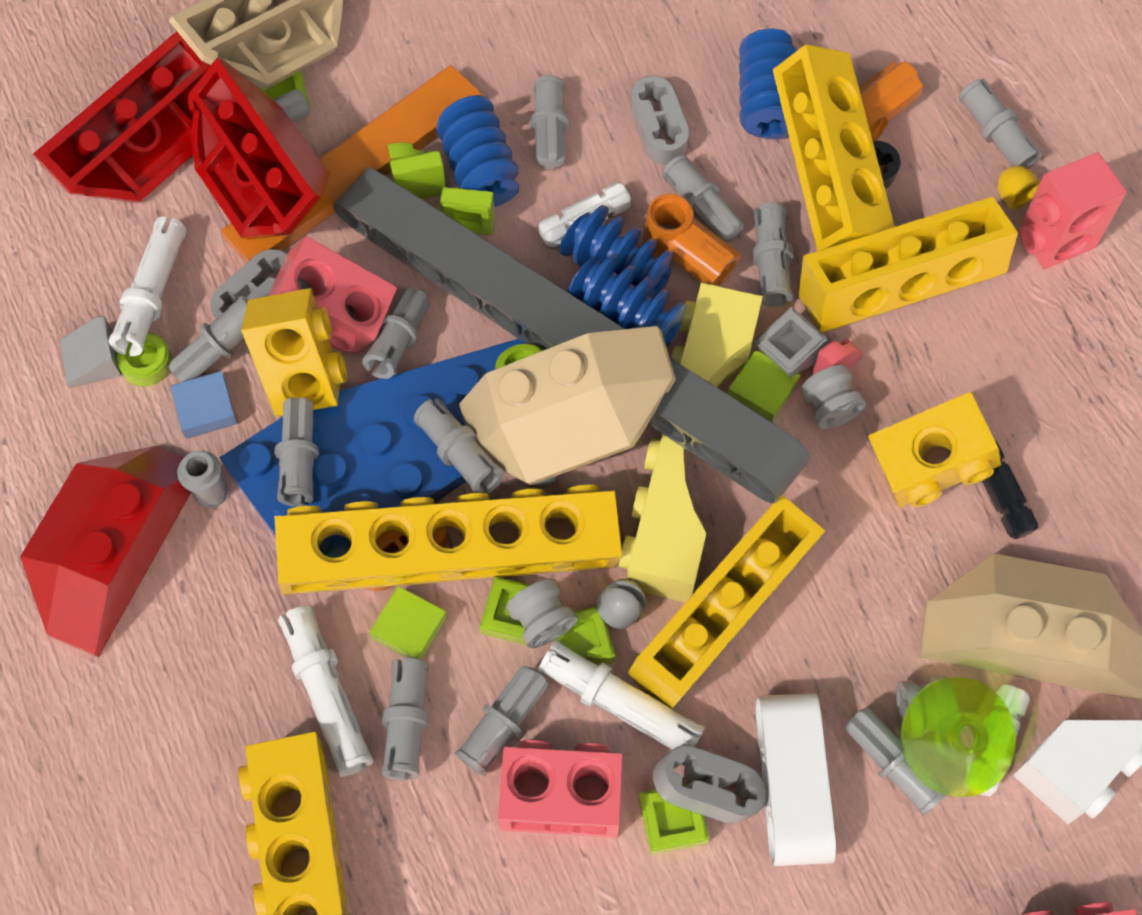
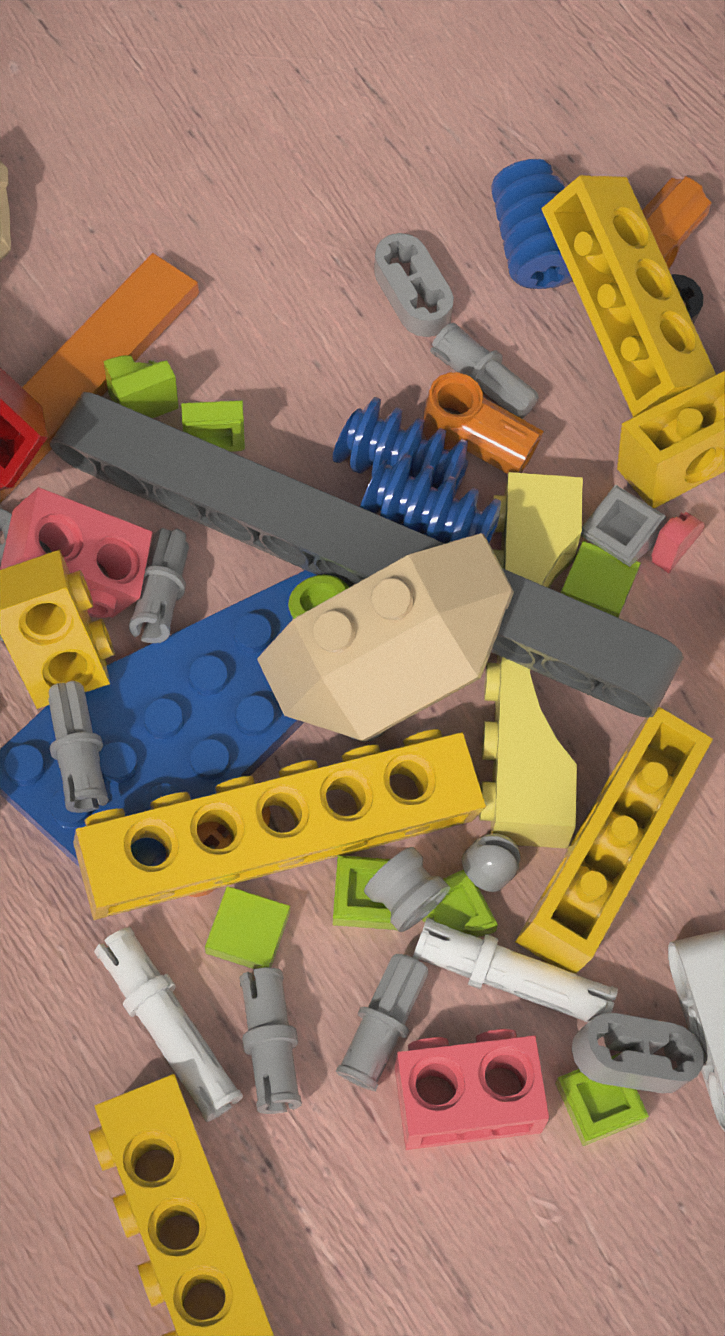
camera: 15 degrees left, 0 degrees up
(458, 446) = (268, 709): light grey pin -> none
(478, 148) = (210, 350): blue piece -> none
(549, 121) = (285, 305): light grey axle -> none
(554, 228) = (319, 431): white axle -> none
(773, 254) = (579, 424): light grey pin -> none
(833, 397) = (683, 582): light grey wheel -> none

